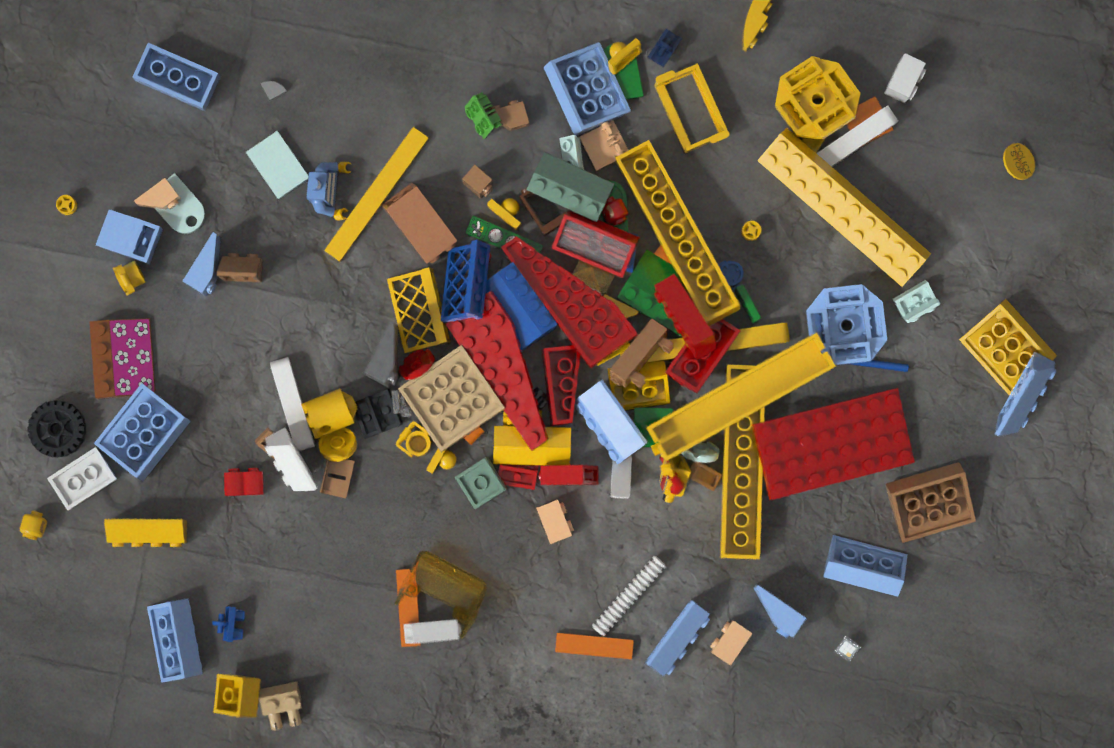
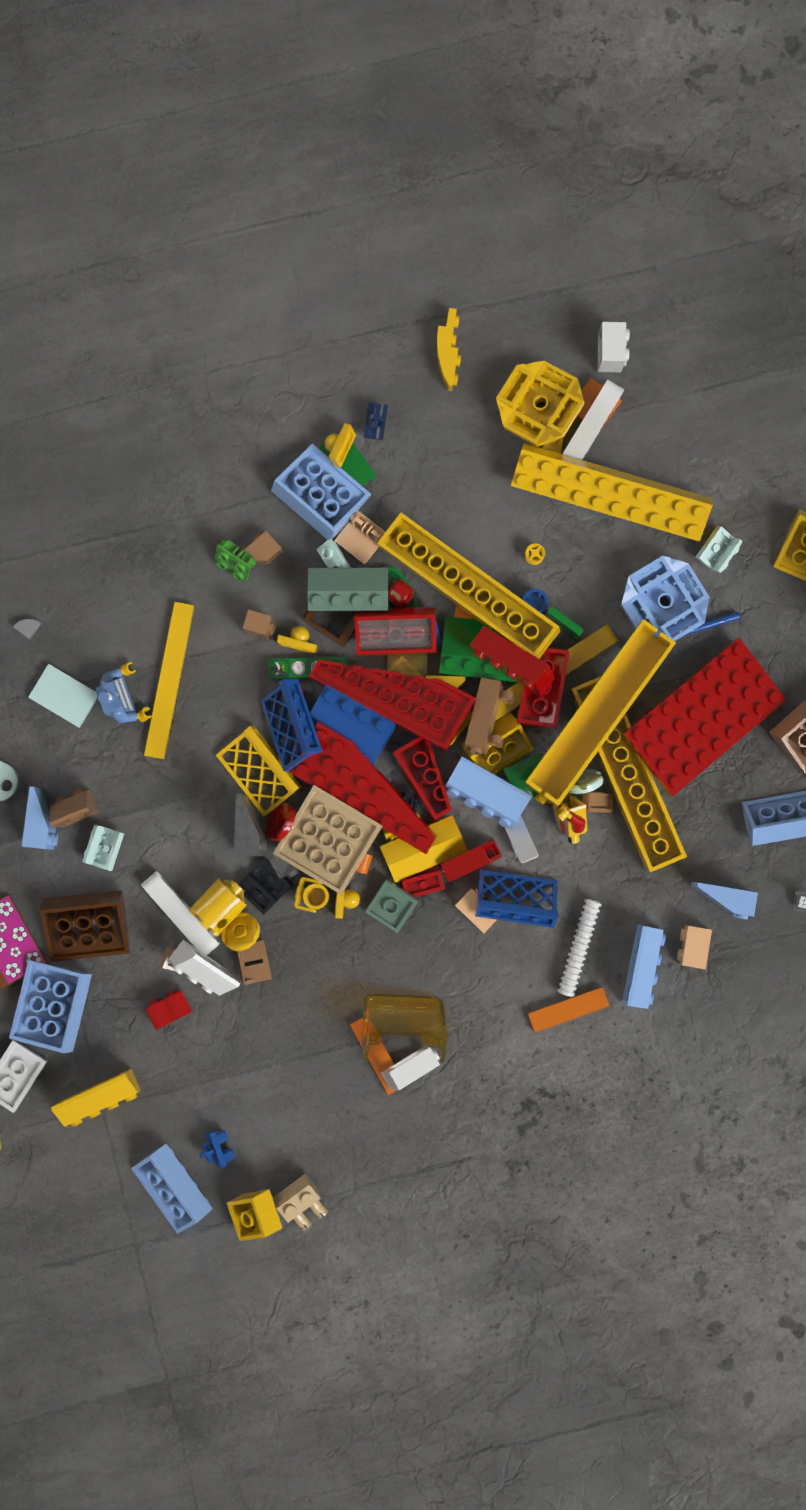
camera: 25 degrees left, 0 degrees up
(204, 376) = (85, 925): none -> reddish brown slope
(251, 314) = (103, 847): none -> light aqua bracket
(420, 223) = (222, 689): nougat slope -> none
(587, 536) = (517, 911): none -> blue fence
(670, 77) = (439, 451): yellow piece -> none
(1019, 161) = (752, 376): yellow piece -> none

